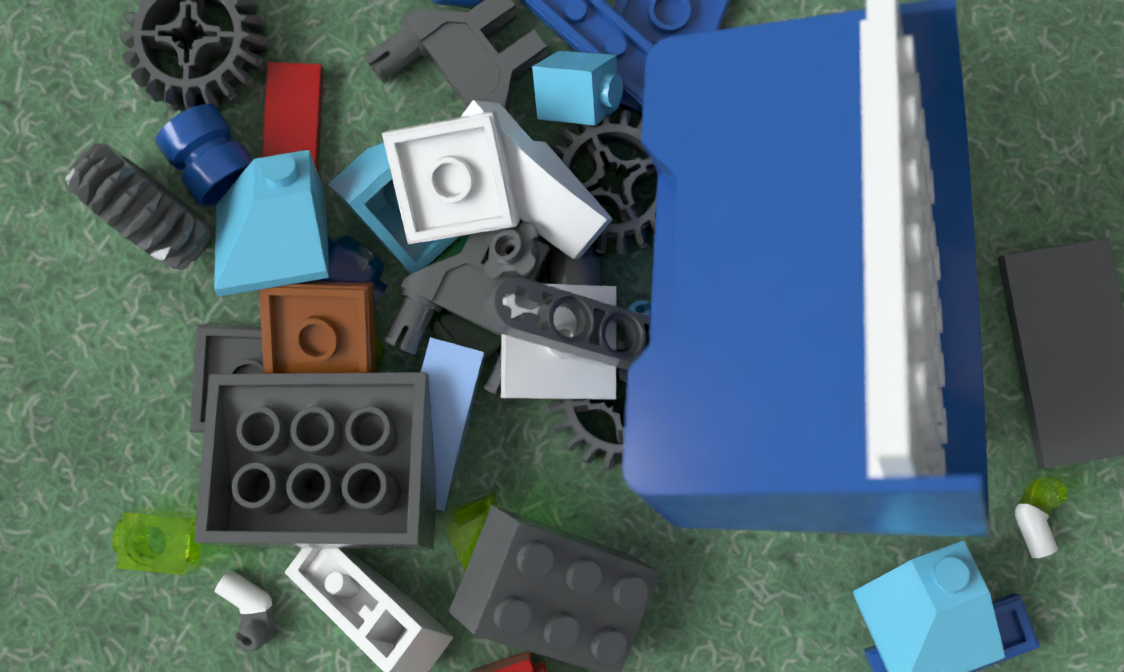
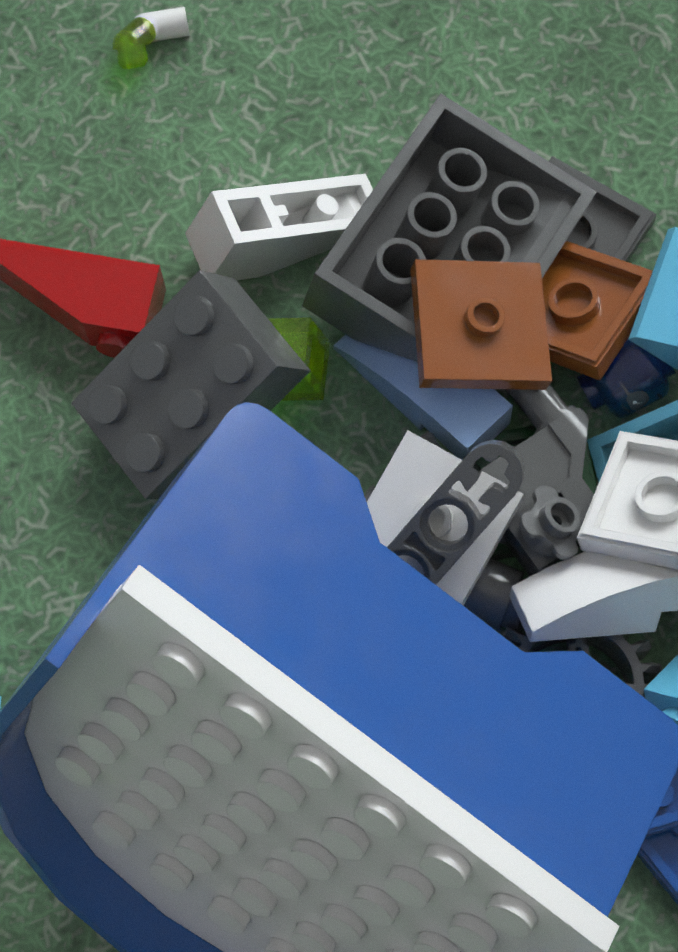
camera: 125 degrees right, 15 degrees down
(134, 553) = (463, 54): clear neon green brick -> none
(255, 610) = (348, 131): arm -> none
(383, 393) = (480, 325): none -> dark orange plate

